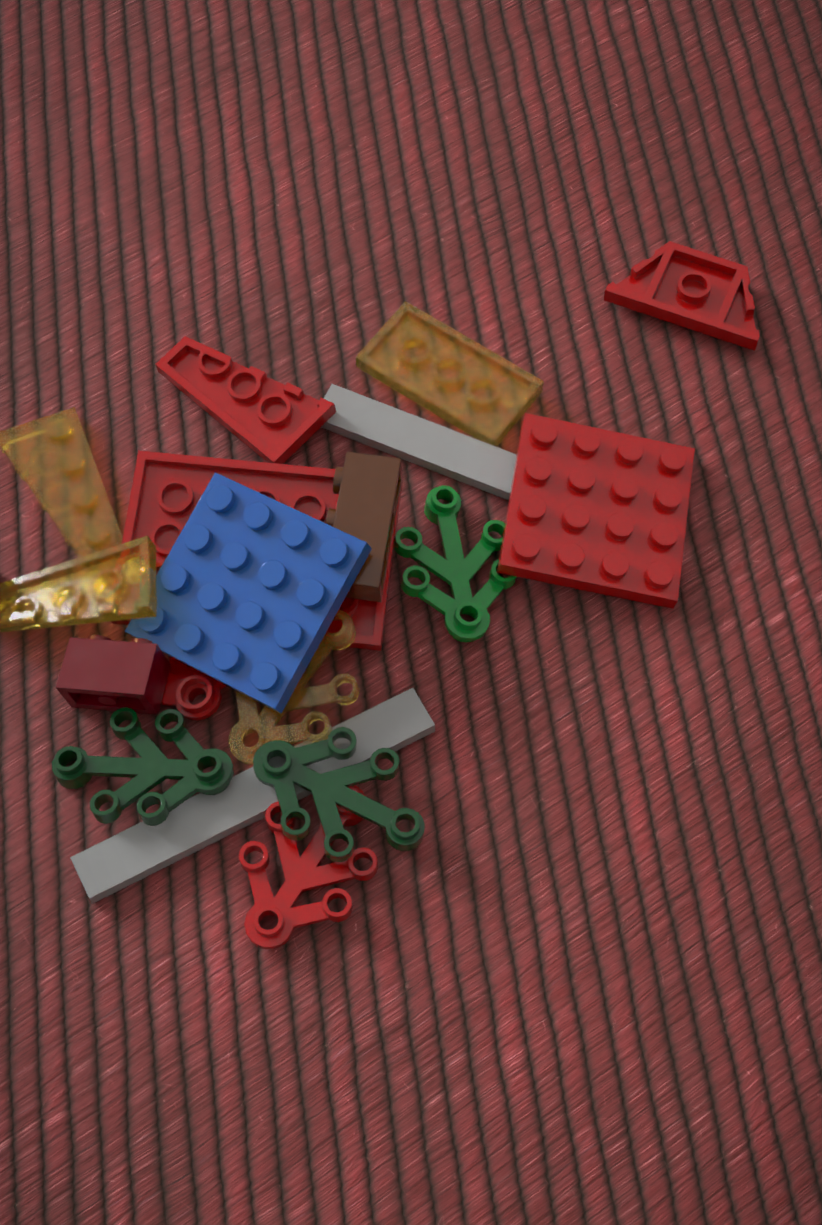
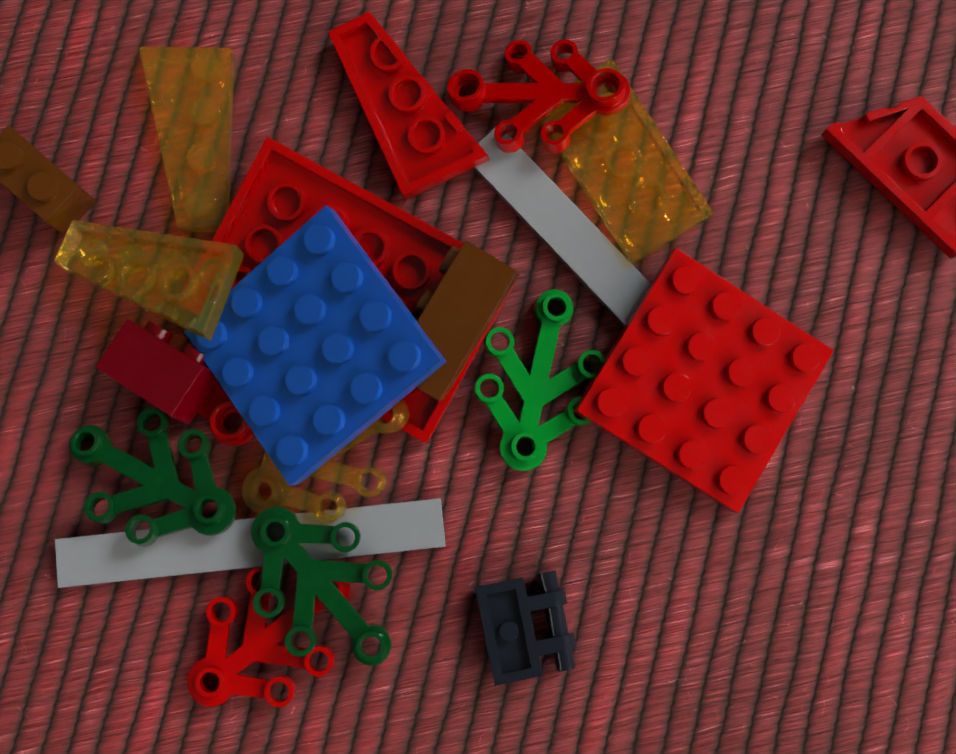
camera: 20 degrees right, 20 degrees up
(401, 325) = (544, 94): none -> red plant
(524, 770) = (510, 629): none -> black plate

